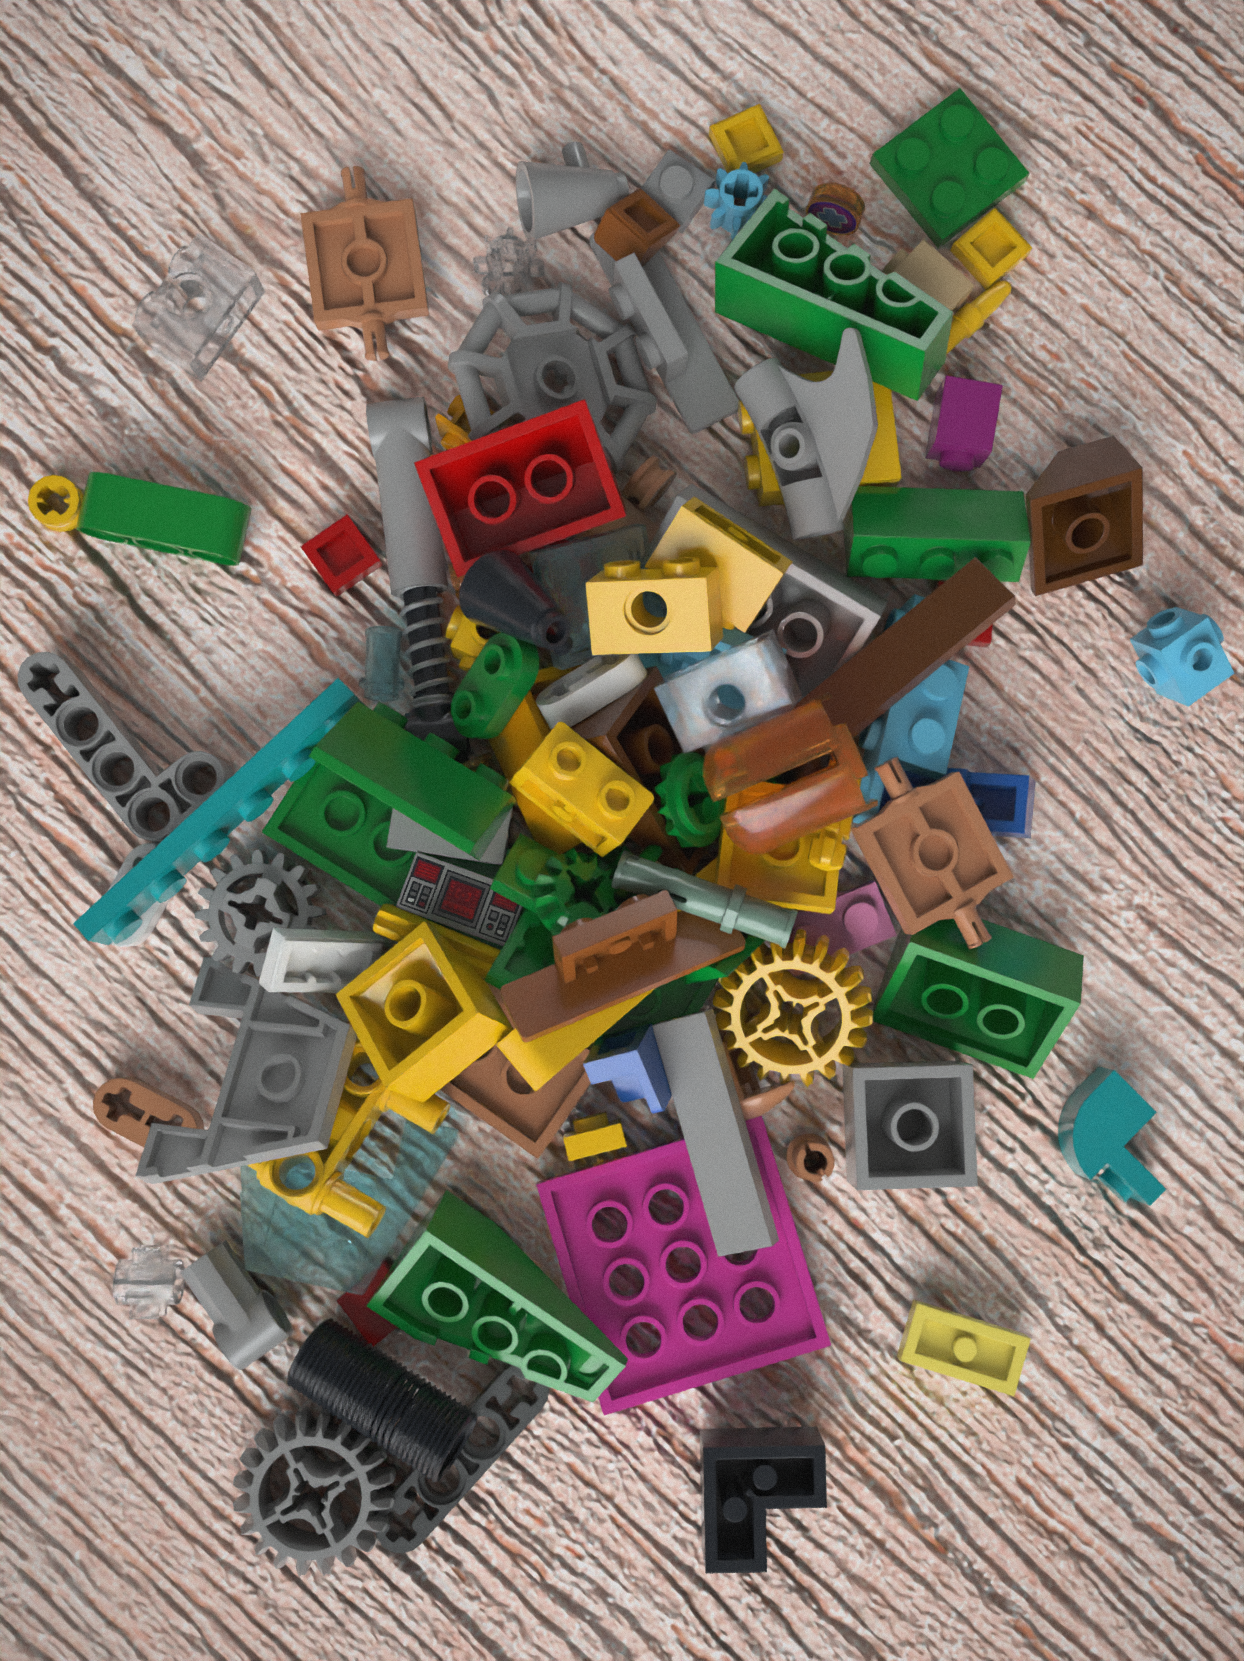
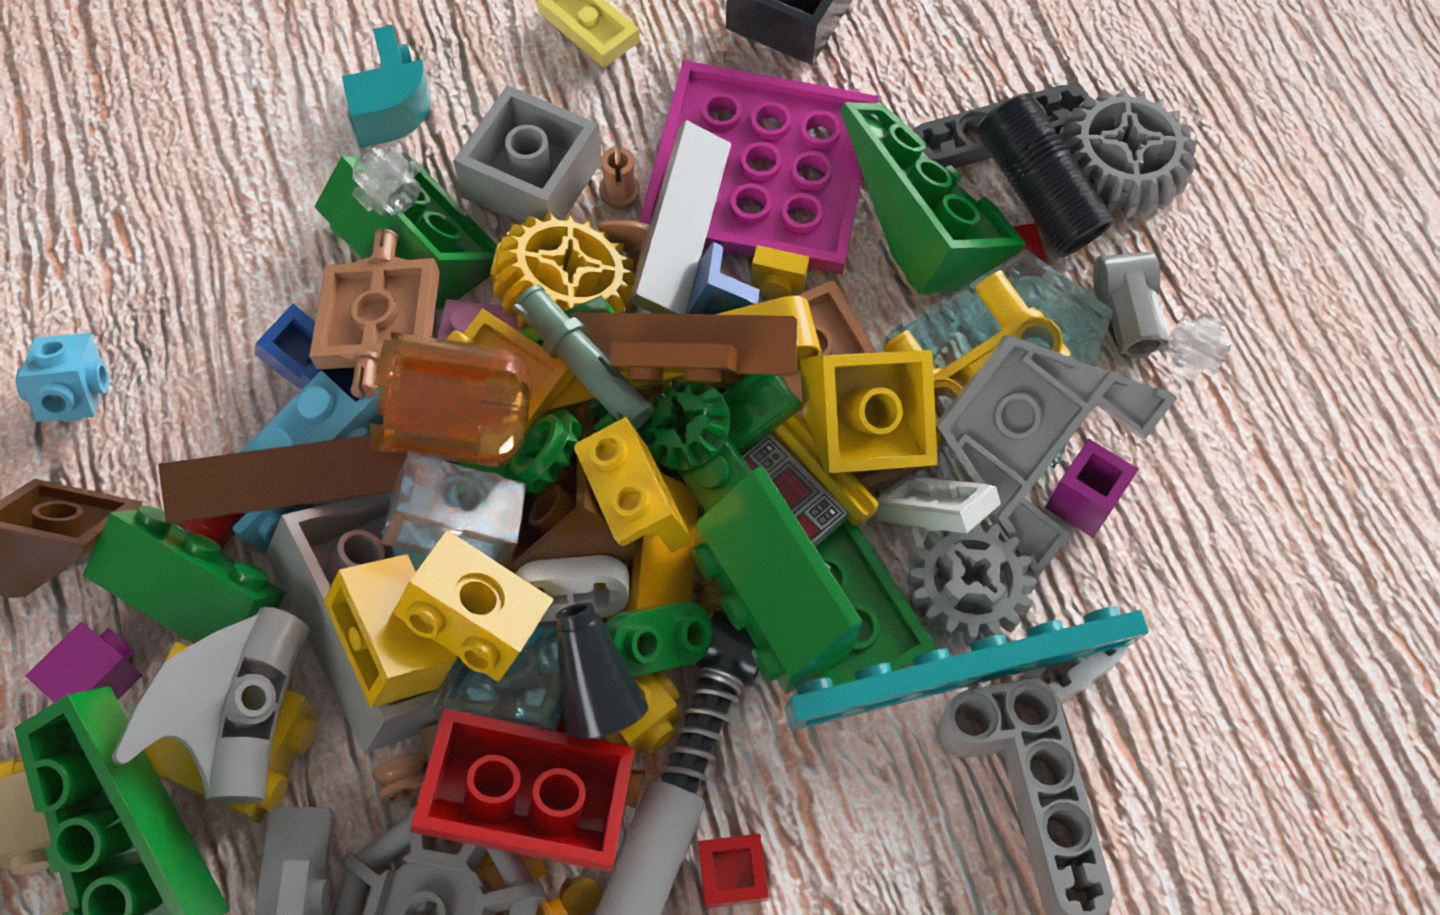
camera: 150 degrees left, 20 degrees down
(146, 1097) = (1154, 474): nougat beam -> none
(187, 1059) = (1091, 488): none -> magenta brick
(382, 664) = (749, 745): clear light blue pin -> none
(1010, 988) = (386, 180): none -> clear gear

